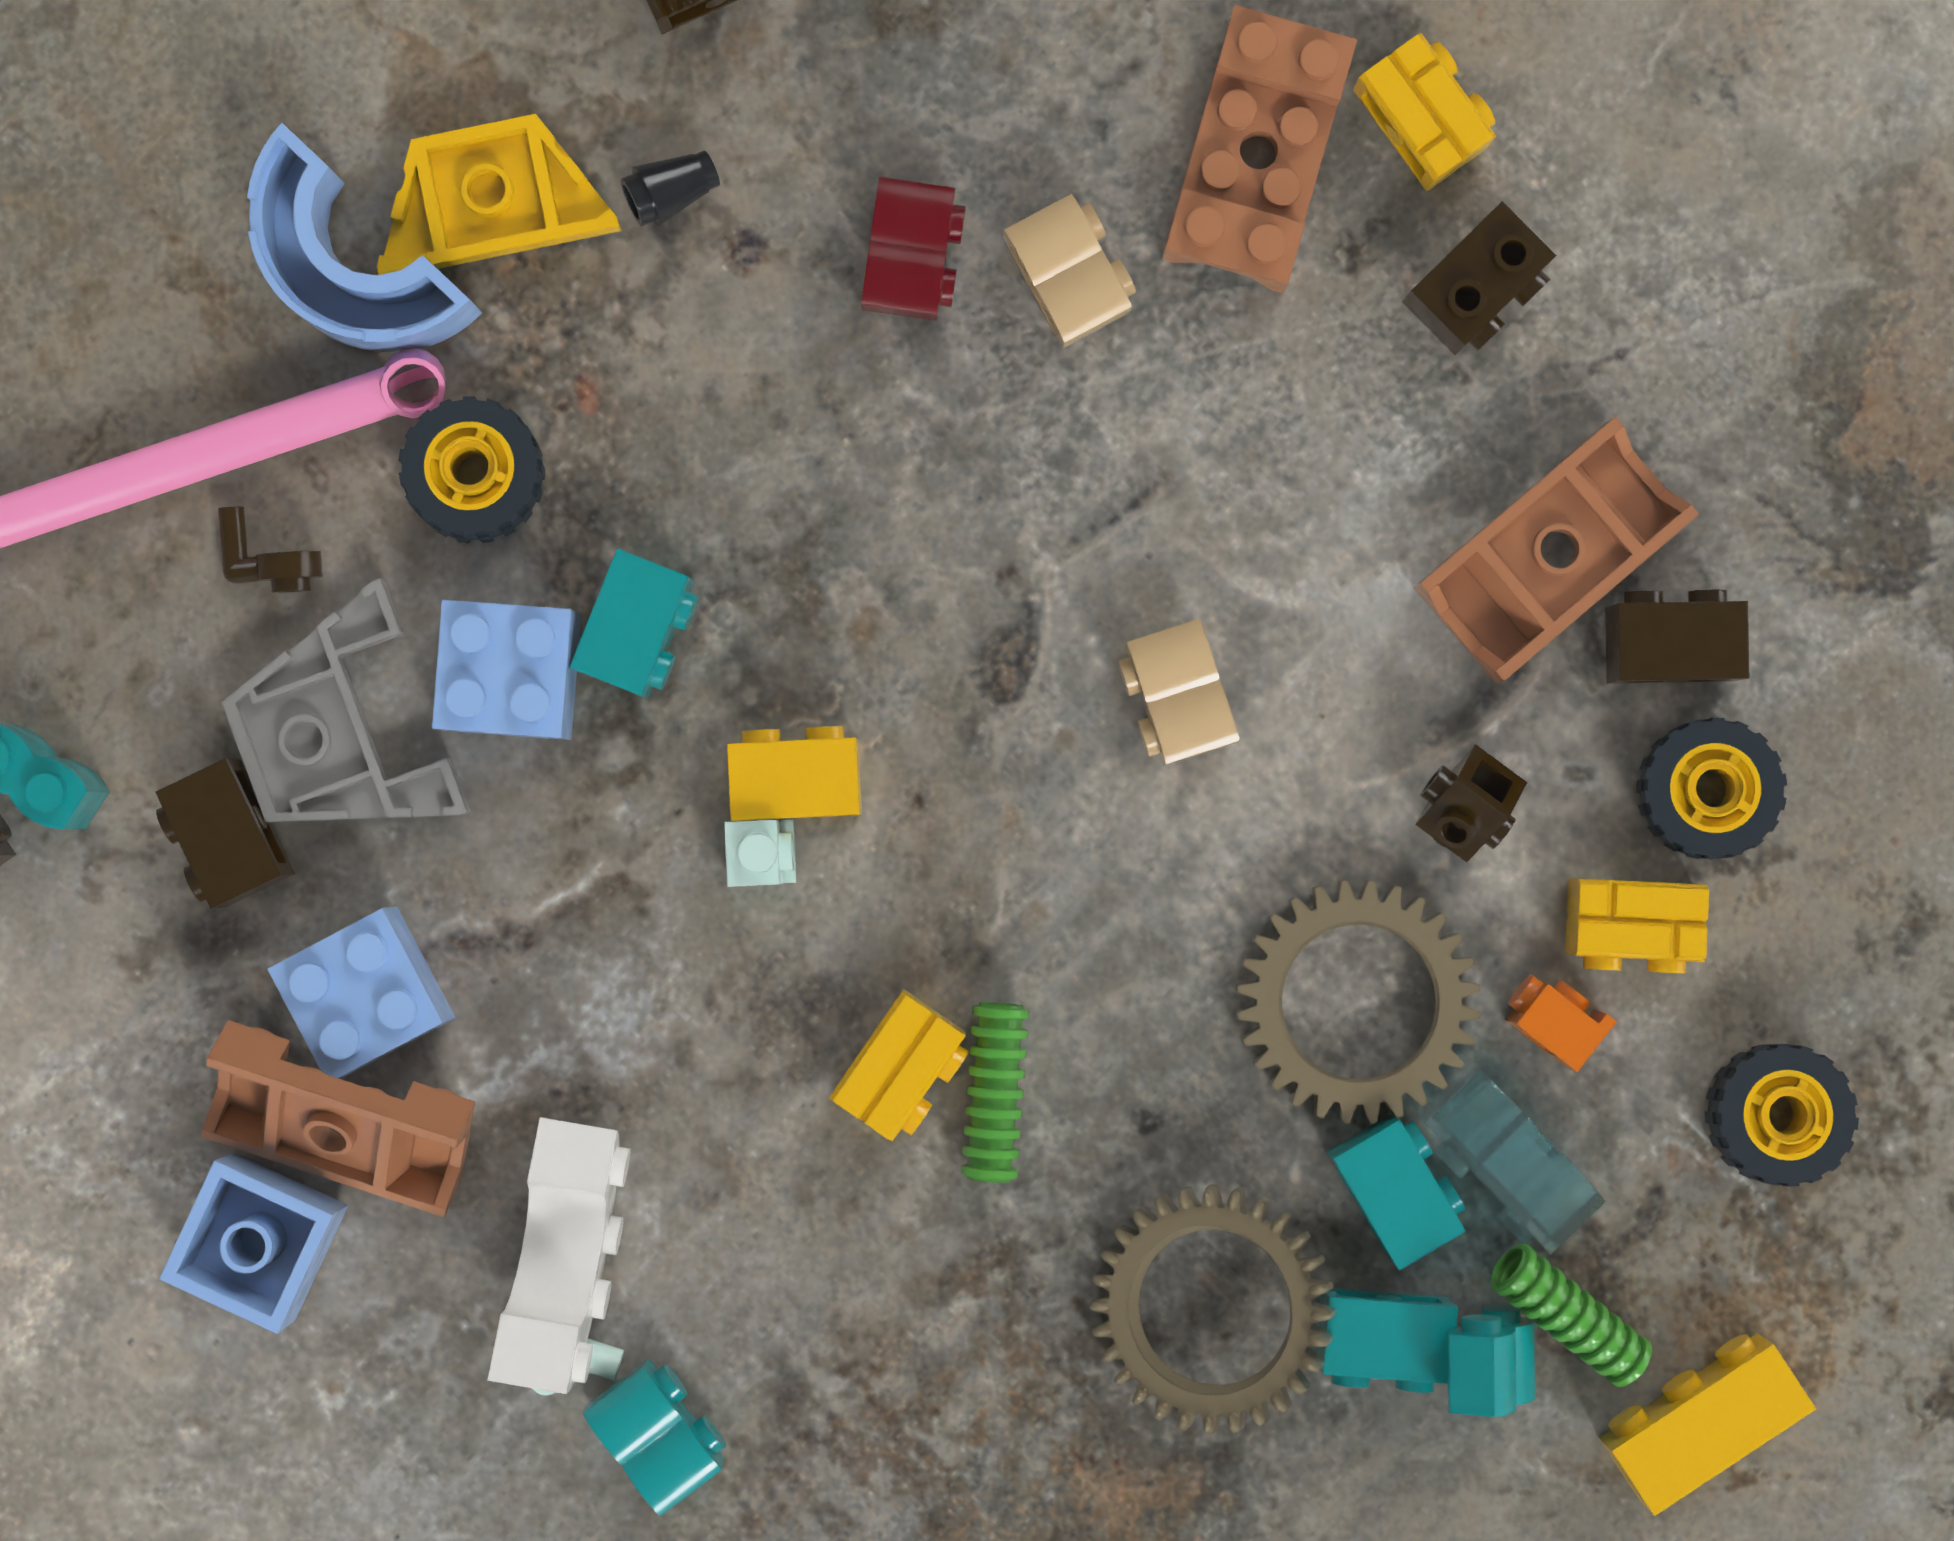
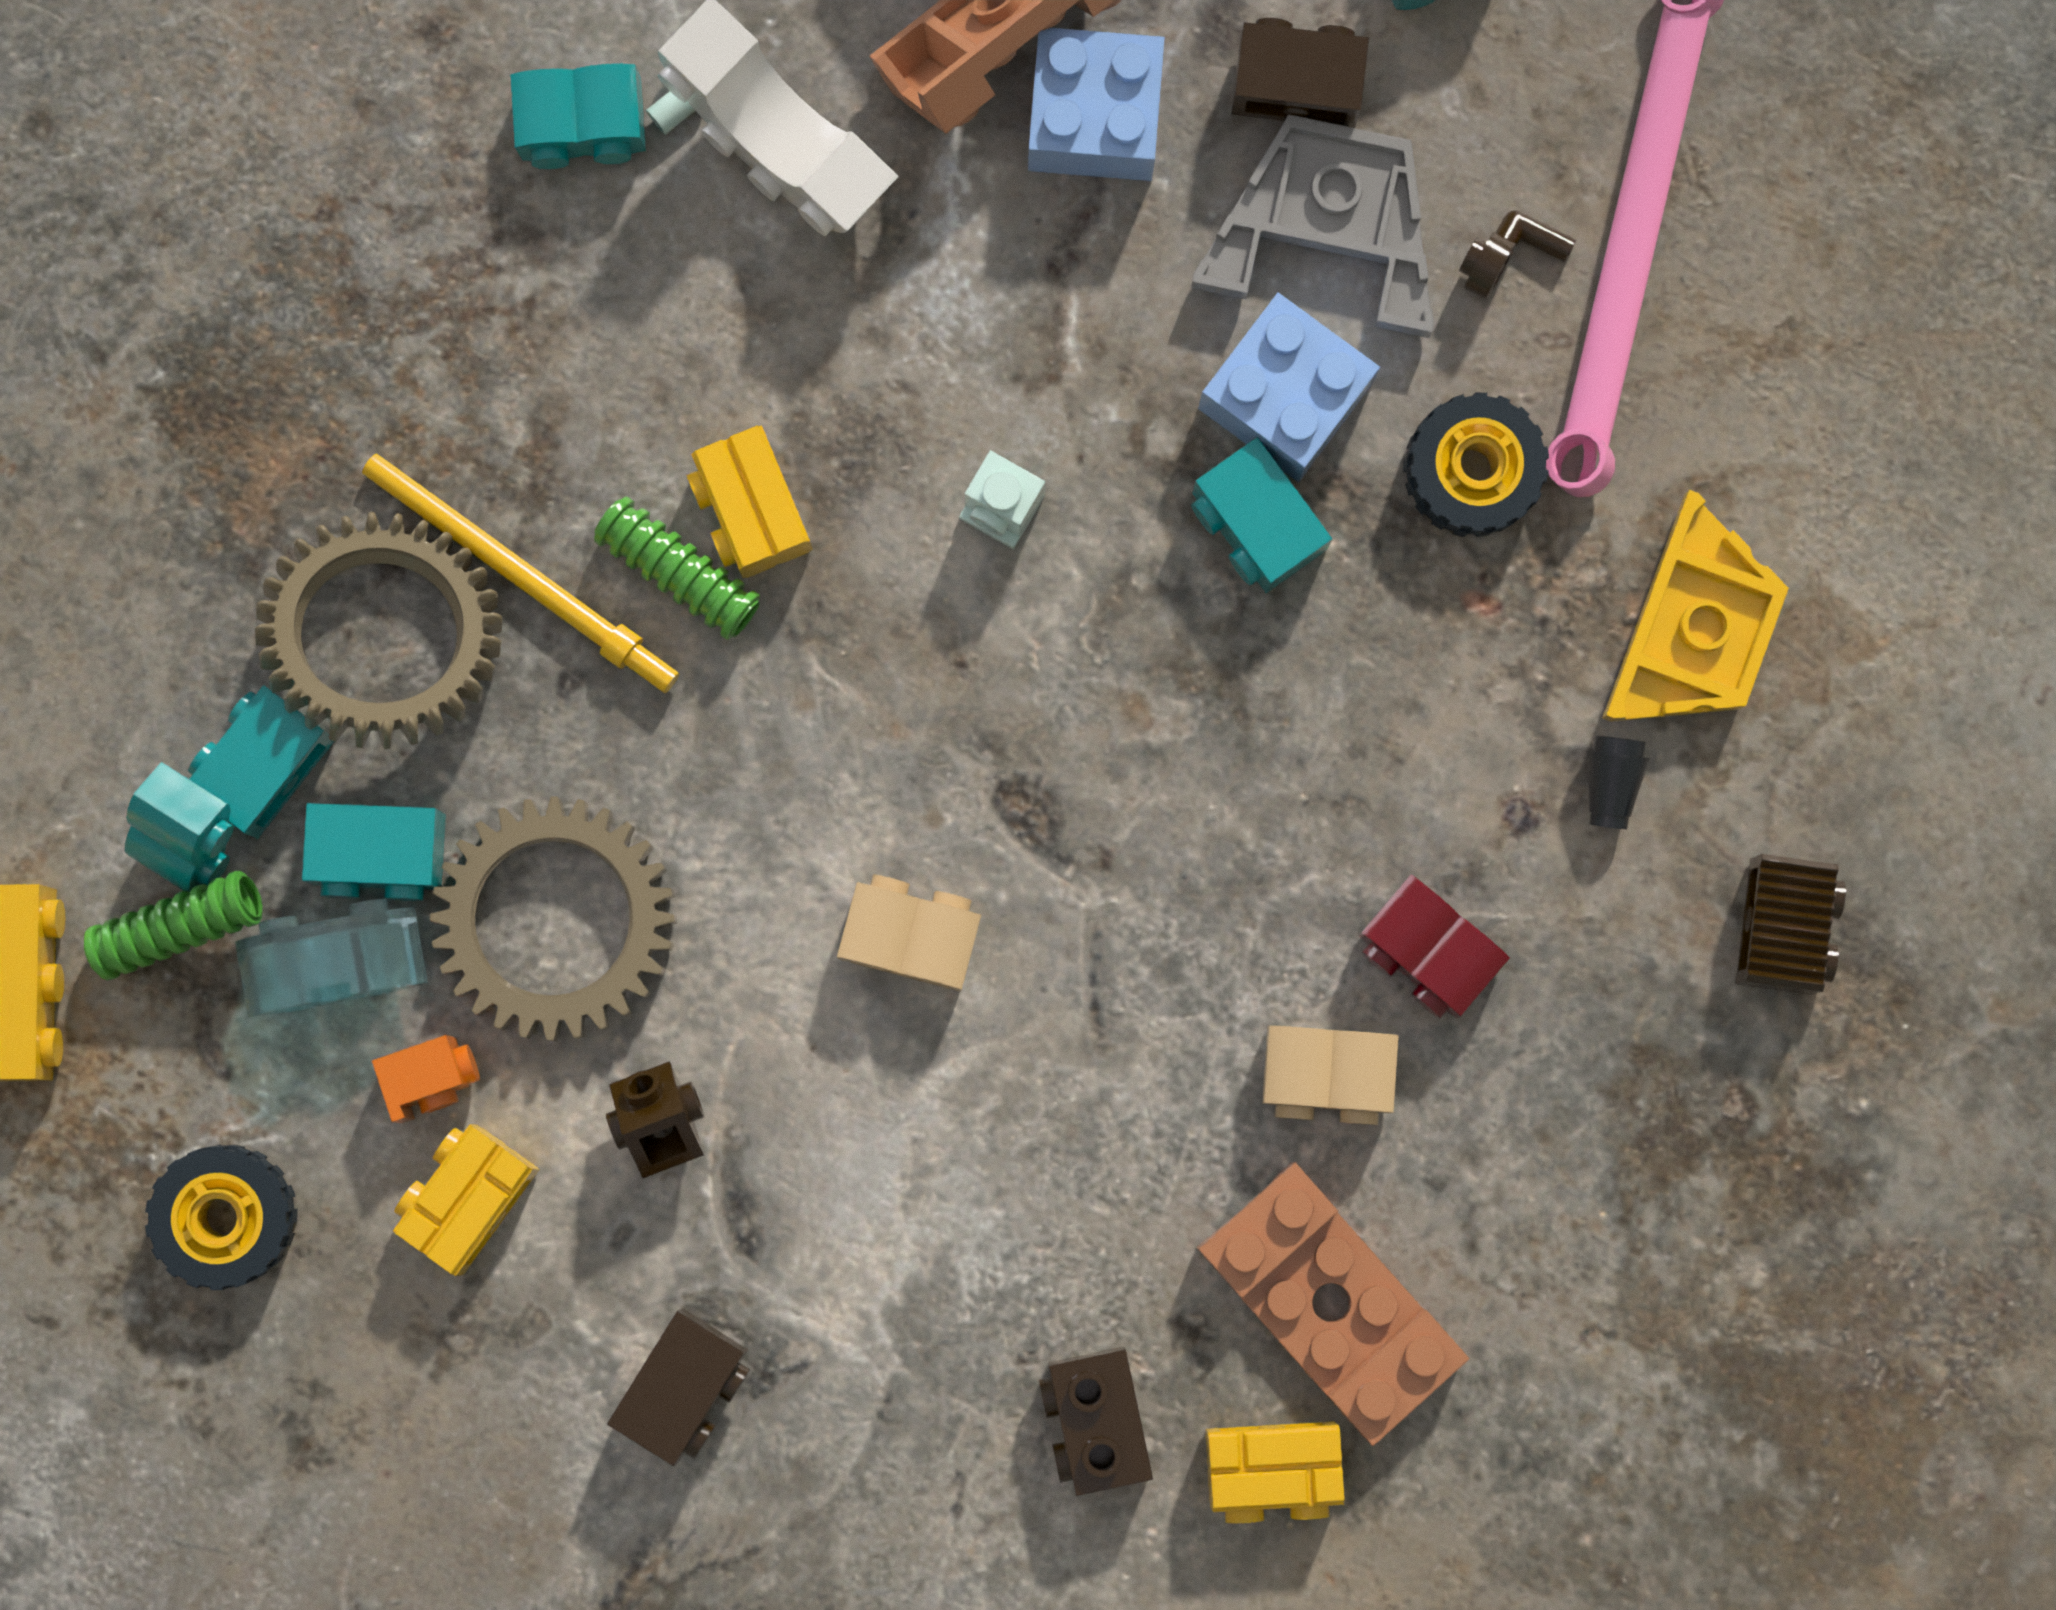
camera: 120 degrees right, 5 degrees down
(292, 246) = (1723, 429): light blue brick -> none
(794, 776) = (1046, 568): yellow brick -> none
(1090, 1099) = (617, 643): none -> yellow bar
(1503, 593) = (835, 1402): nougat piece -> none
(1751, 783) = (493, 1344): black wheel -> none

